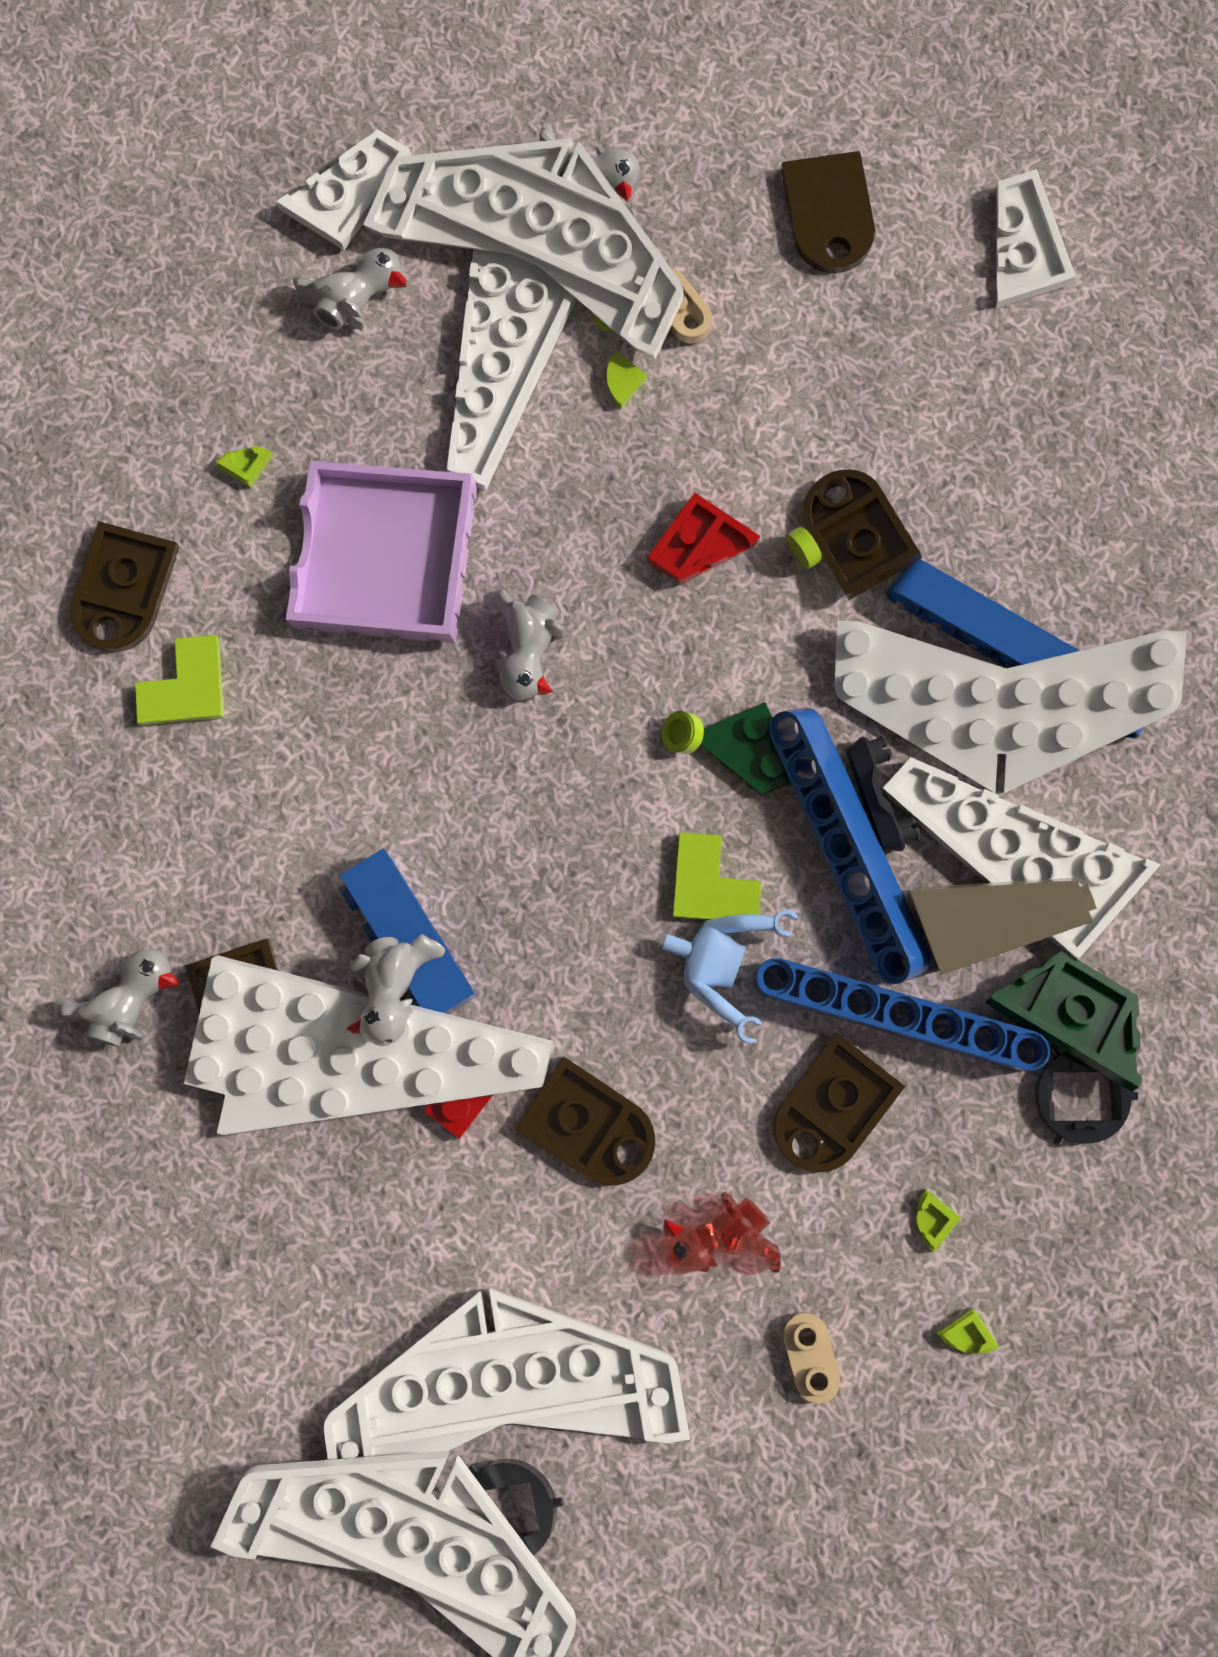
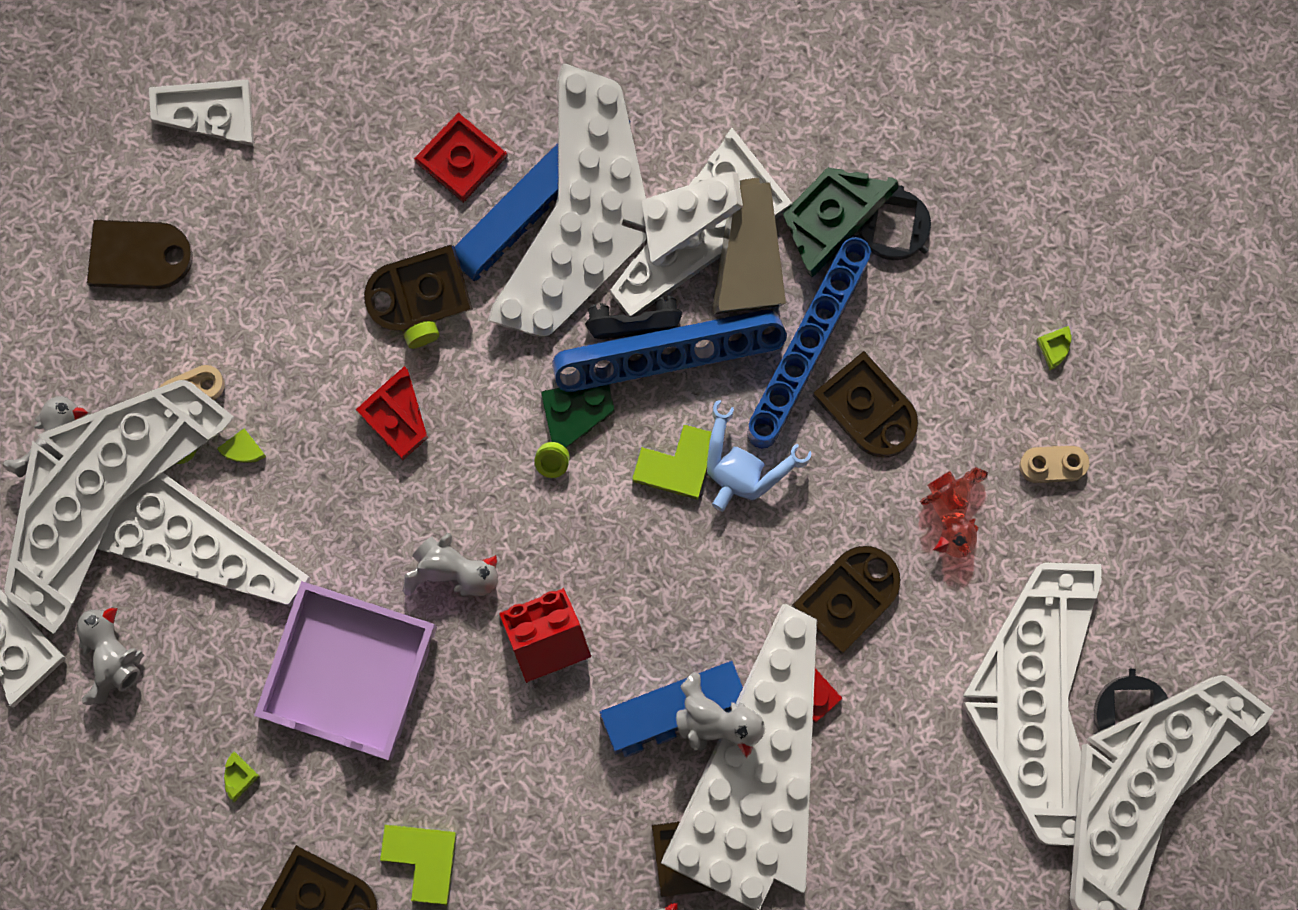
camera: 80 degrees left, 5 degrees down
(467, 767) = (545, 634): none -> red slope
(934, 1220) = (967, 352): lime tile -> none
(1030, 827) = (687, 211): none -> white wing
(1040, 546) = (460, 157): none -> red tile

